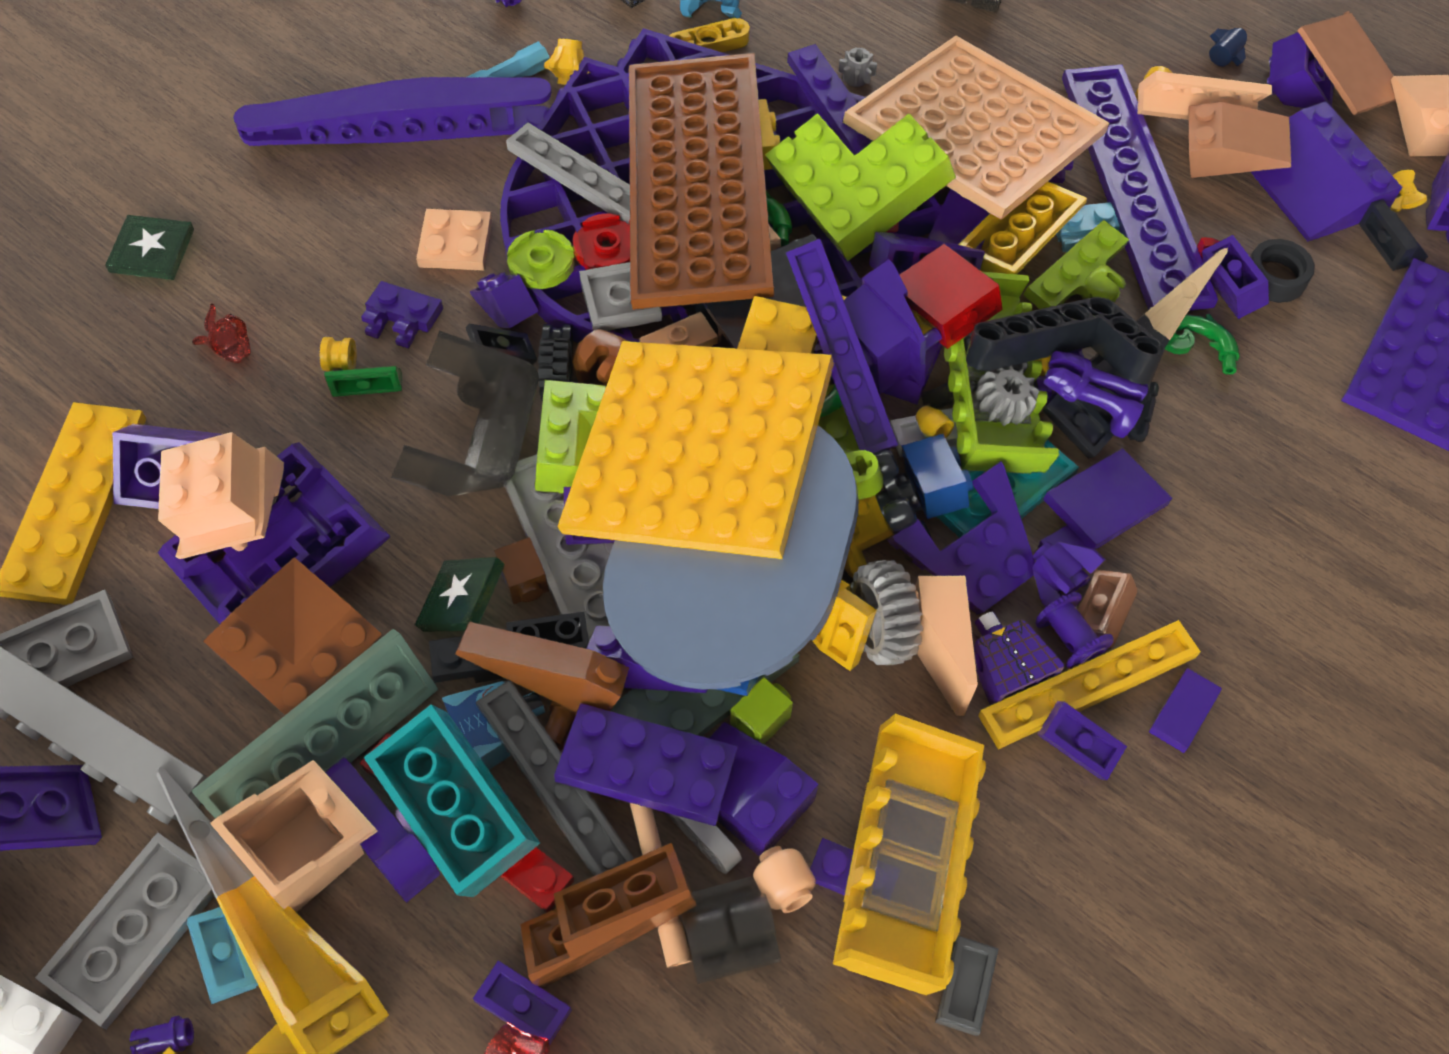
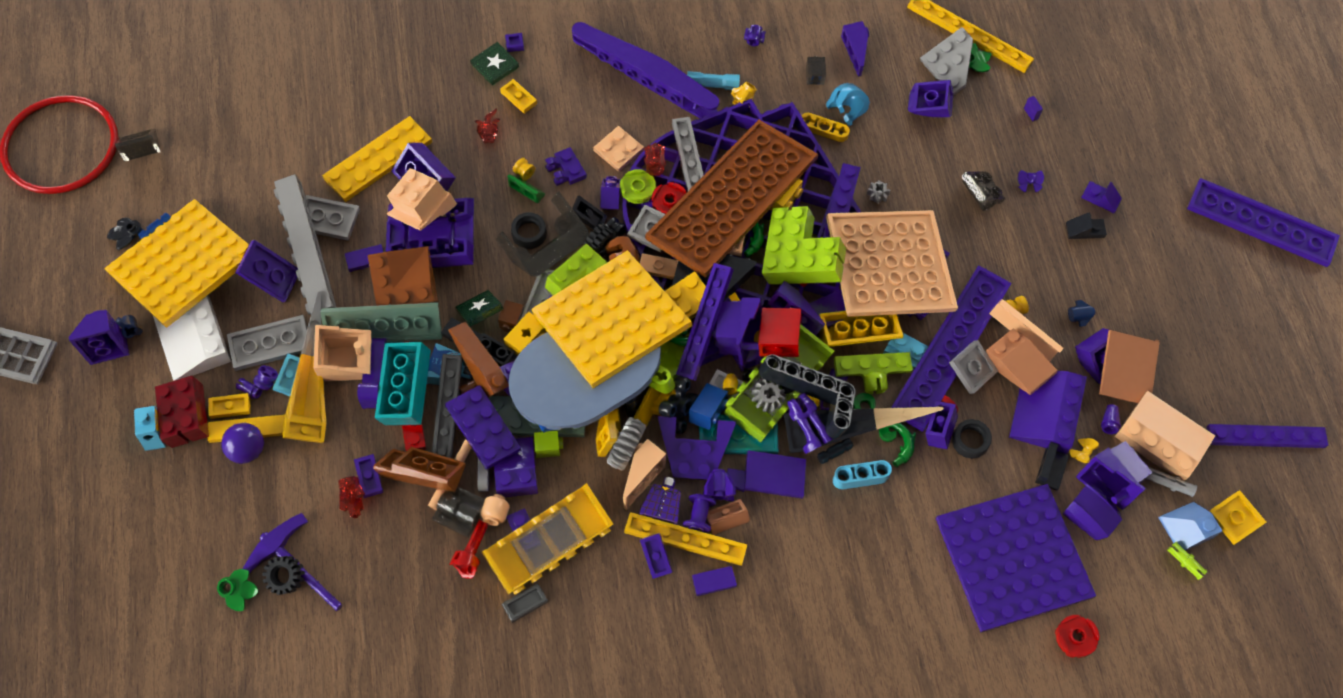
camera: 40 degrees right, 5 degrees up
(156, 201) = (514, 42): none -> dark purple tile
(180, 993) = (265, 377): none -> dark purple wheel
(184, 665) = (359, 260): none -> dark purple tile
(233, 264) = (518, 96): none -> yellow plate
(429, 410) = (524, 218): none -> black tyre
(539, 204) = (655, 159): none -> clear red rock
(574, 558) = (526, 327): none -> yellow brick
(818, 997) = (466, 560): none -> red piece
(1191, 184) = (973, 367): none -> light grey plate
(1210, 412) = (868, 468): none -> medium azure beam
(1392, 137) = (1111, 420): none -> dark purple cone

